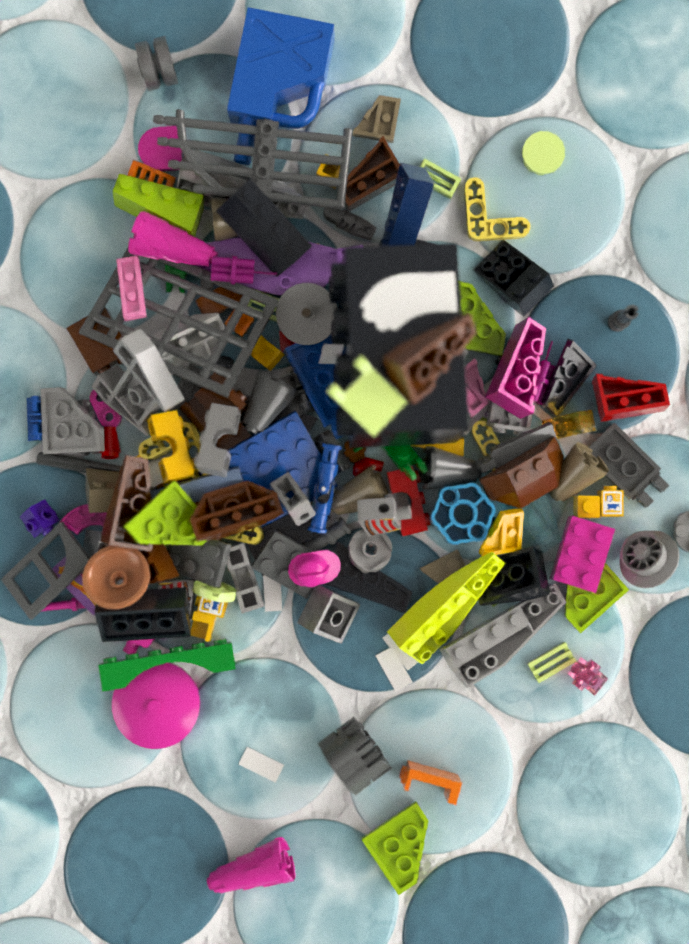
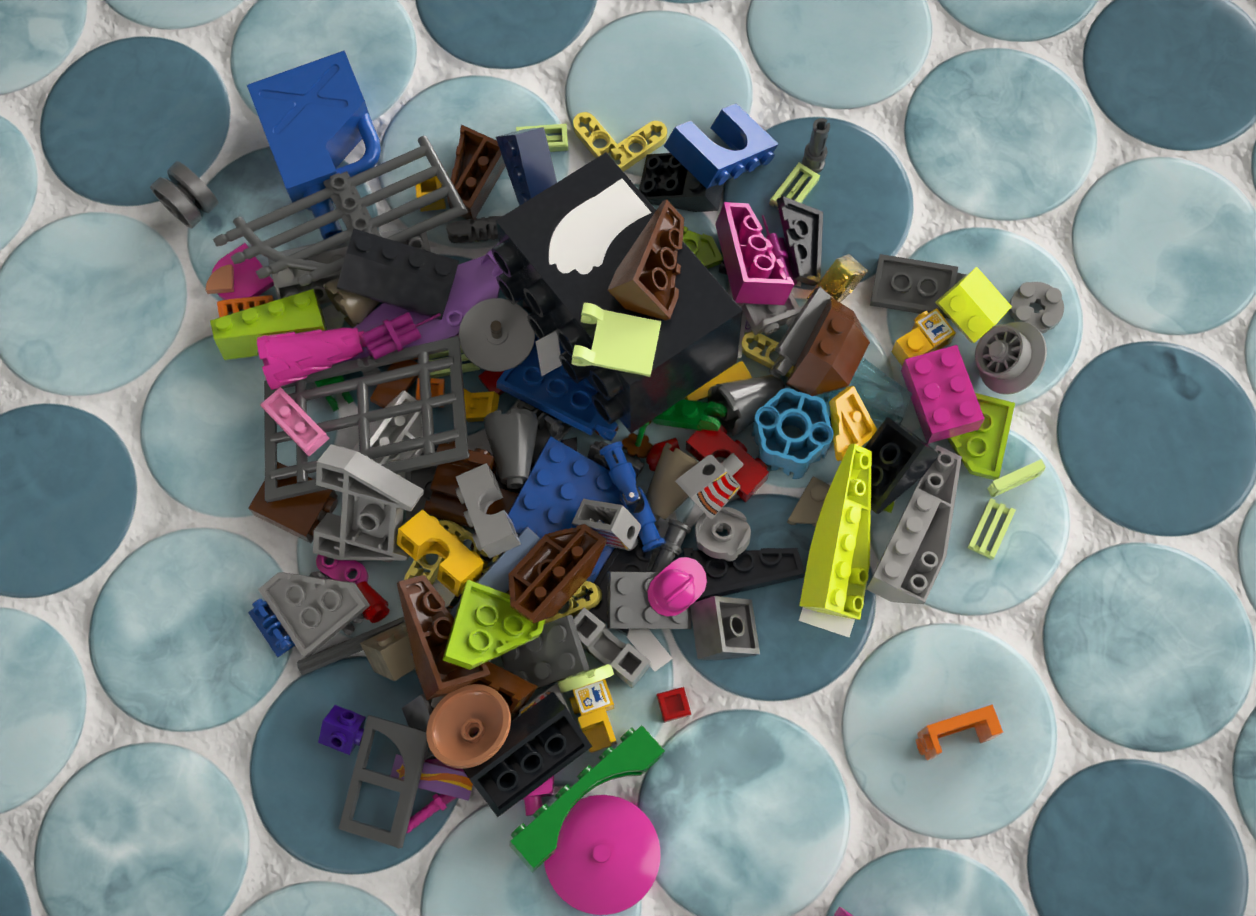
camera: 25 degrees left, 15 degrees down
(80, 518) = (394, 695): dark pink tile -> none
(145, 145) = (221, 280): none -> nougat tile
(261, 764) = (763, 845): white sticker -> none
(263, 640) = (673, 704): none -> red tile
(351, 759) = (855, 759): dark grey piece -> none
(379, 120) = (446, 117): dark tan wing -> none
(394, 669) = (834, 644): white sticker -> none
(399, 846) = (975, 832): lime plate -> none
(537, 286) = (714, 164): none -> blue arch
(543, 153) = (630, 54): yellowish green tile -> none
(578, 472) = (880, 319): dark tan cone -> none
(587, 675) = (1038, 514): clear pink brick -> none
(592, 641) = (1016, 478): none -> yellowish green tile
(607, 328) = (807, 172): none -> yellowish green tile
(628, 398) = (875, 222): red wedge -> none
(649, 506) = (974, 305): none -> neon yellow slope

